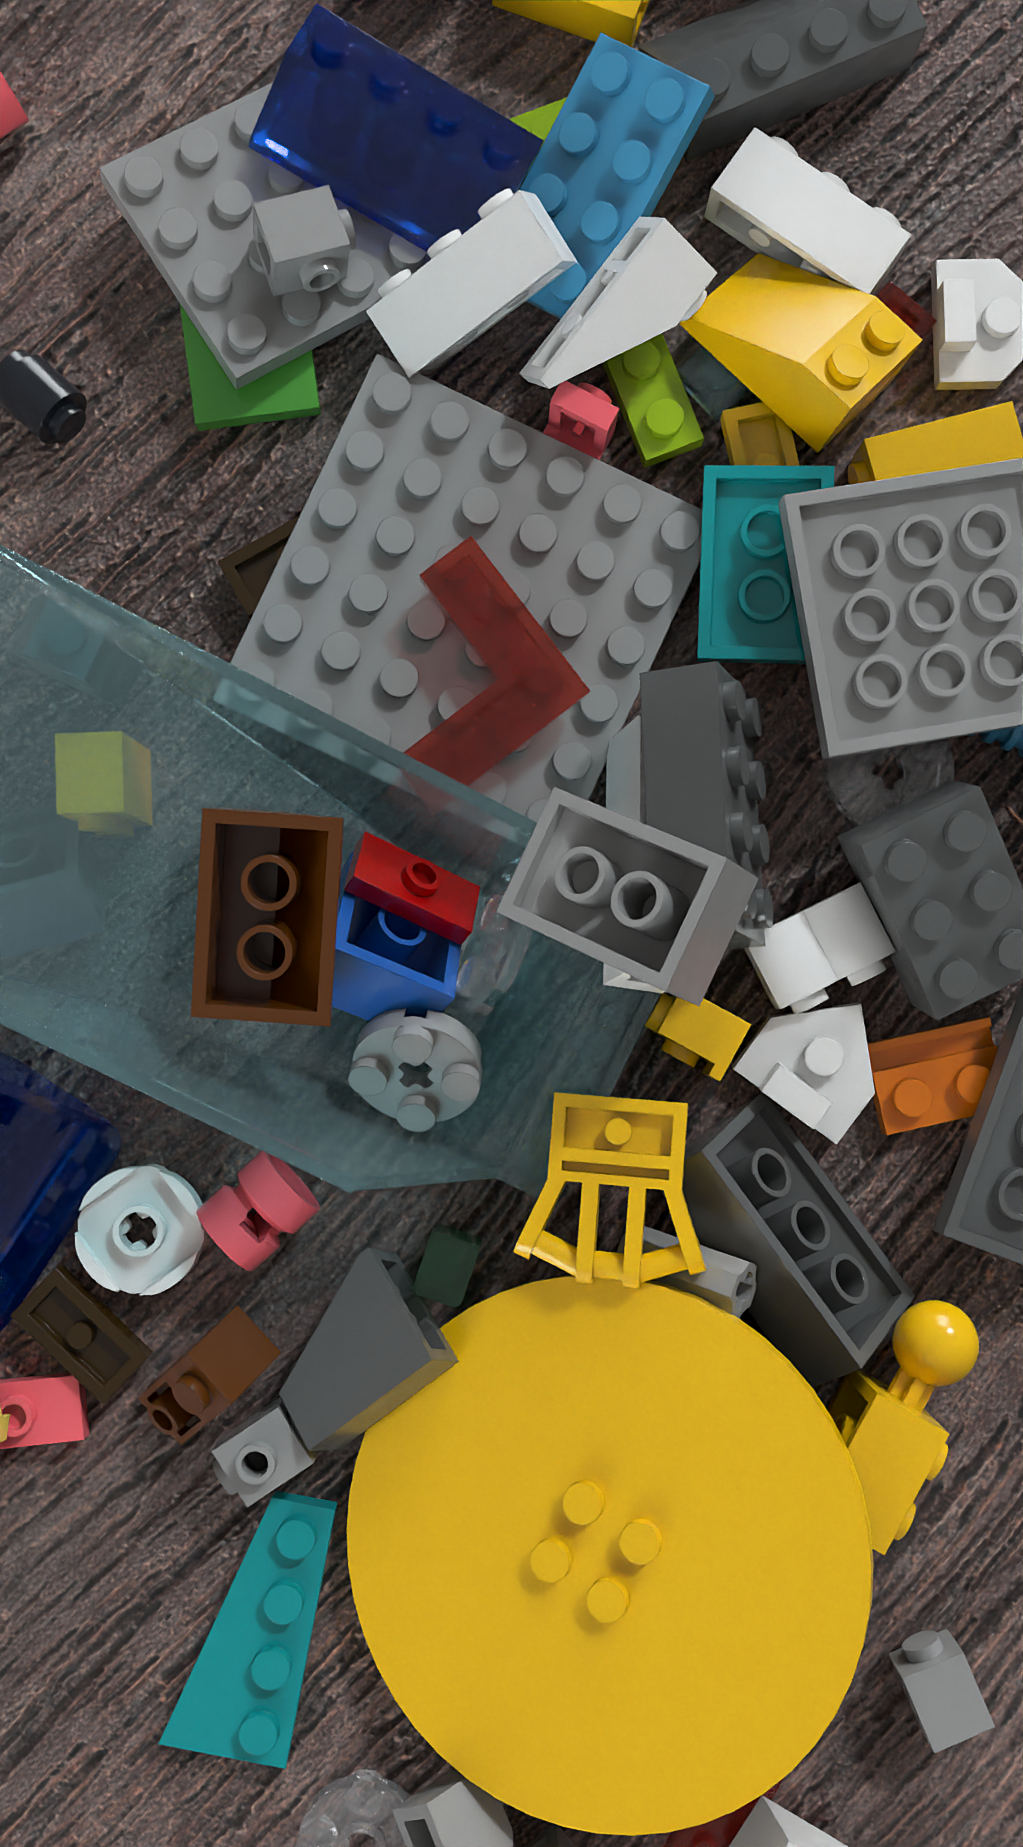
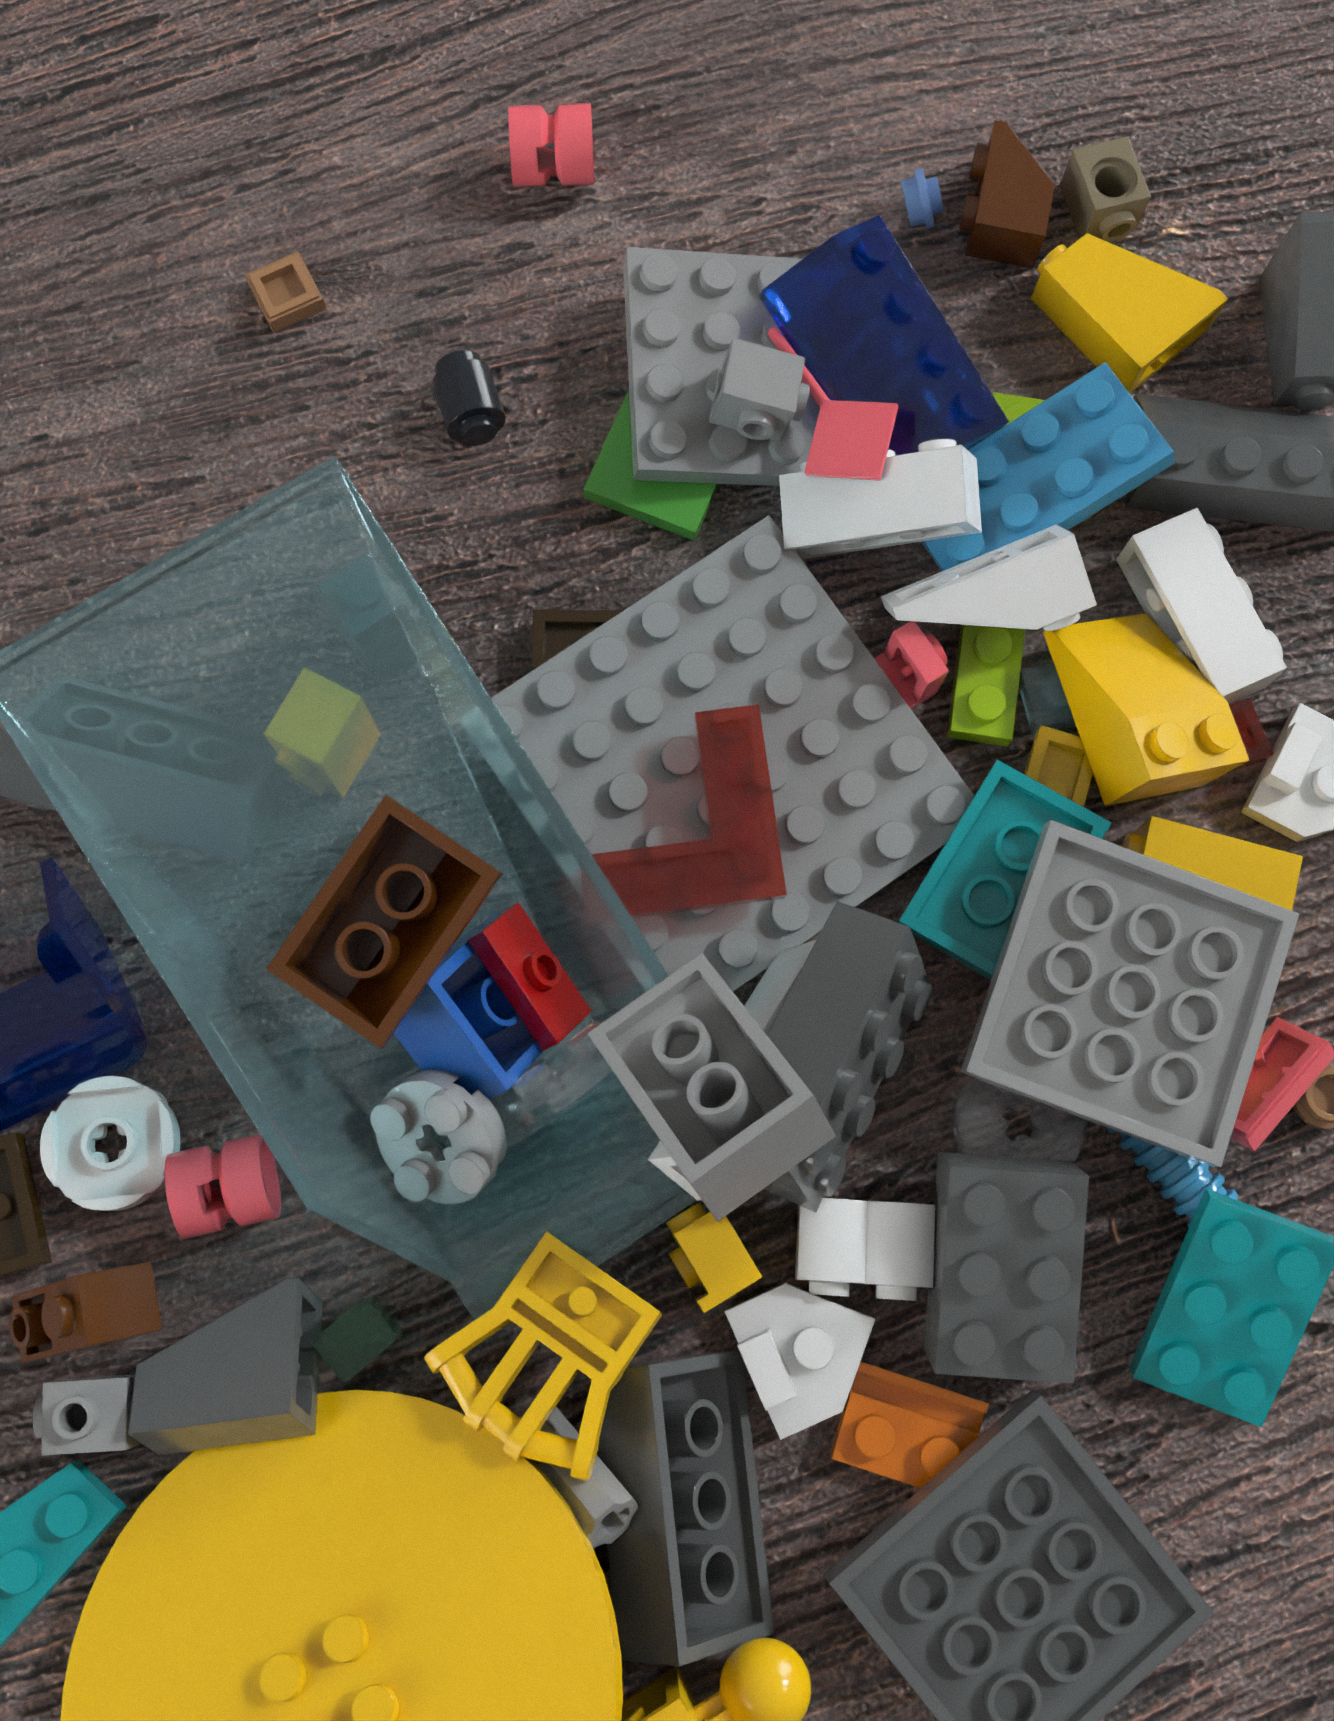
camera: 25 degrees right, 10 degrees down
(409, 236) = (848, 435): none -> coral piece

